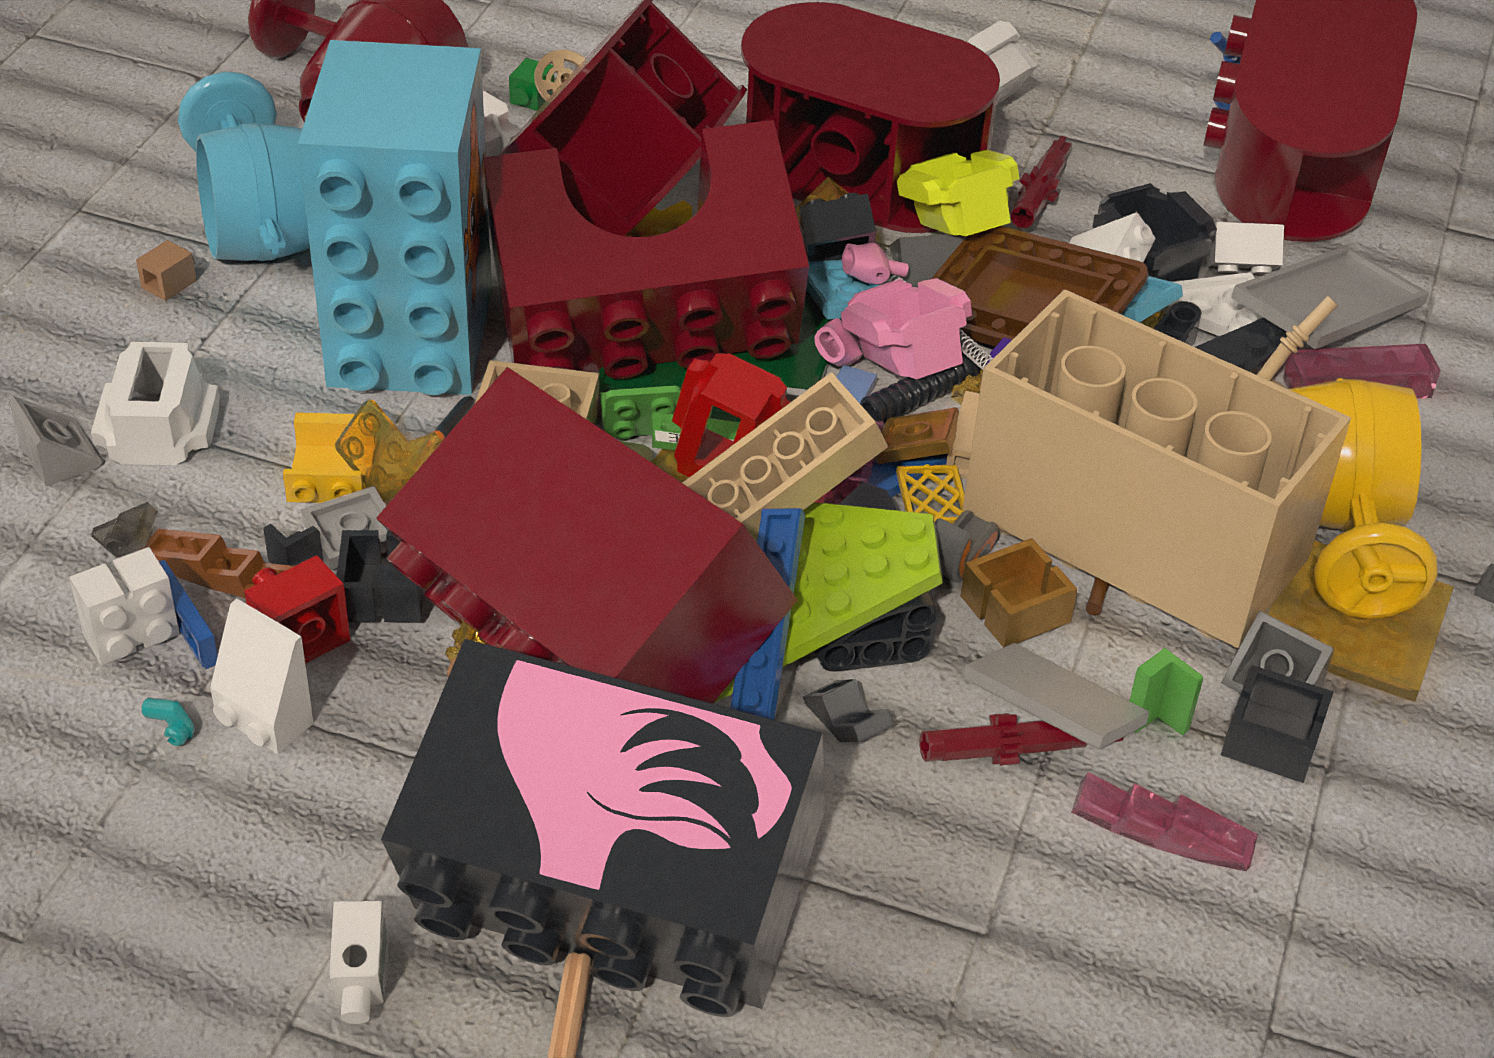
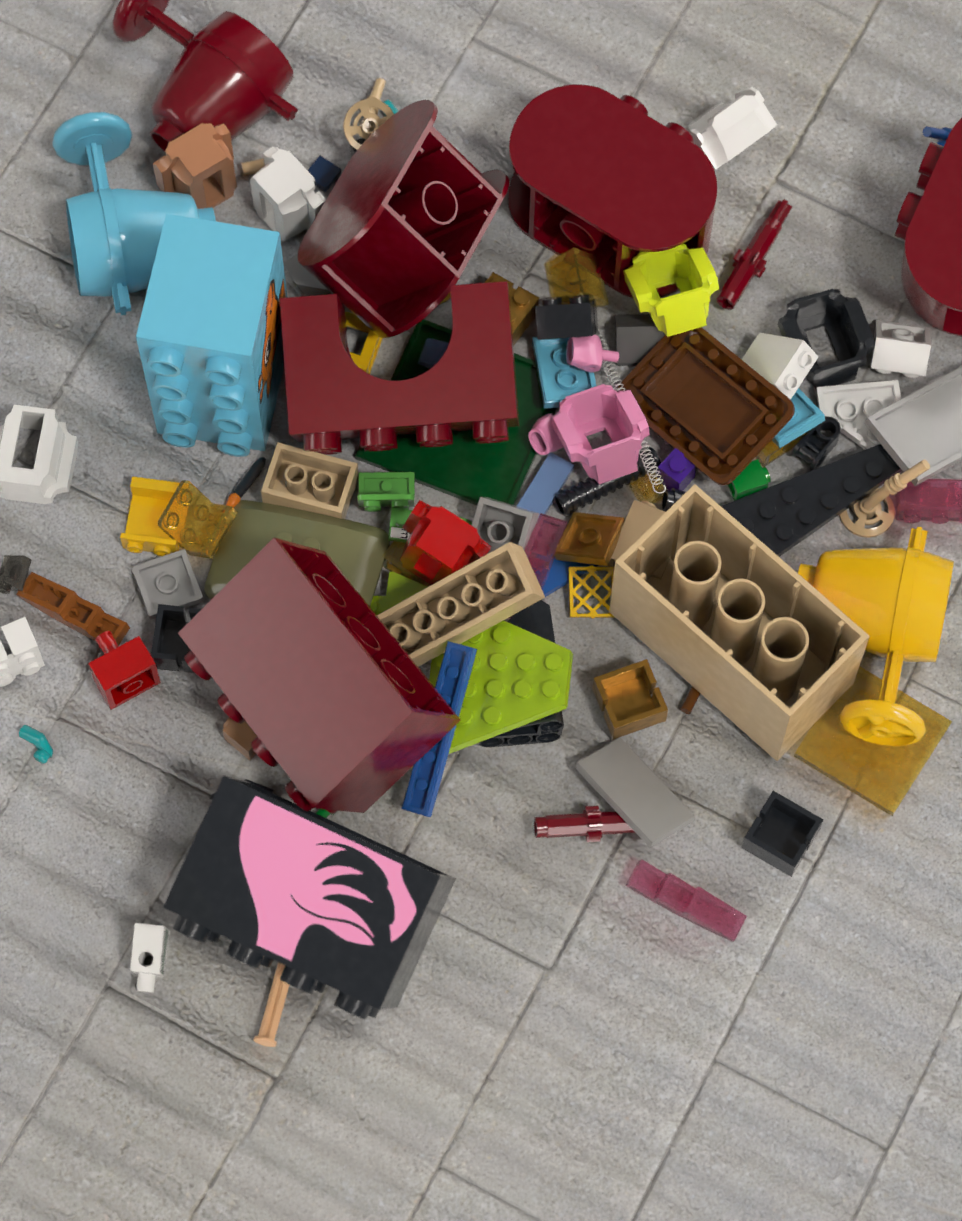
camera: 10 degrees right, 25 degrees up
(166, 270) = (41, 302): medium nougat brick -> none
(191, 623) = (48, 655): blue tile -> none
(261, 679) = (96, 734): white slope -> none
(294, 548) = (125, 602): black panel -> none
(523, 87) = (345, 94): green brick -> none
(845, 712) = (491, 785): black slope -> none
(962, 542) = (600, 647): dark grey animal -> none
(1167, 690) = (708, 796): bright green panel -> none
(1281, 650) = (800, 780): dark grey slope -> none

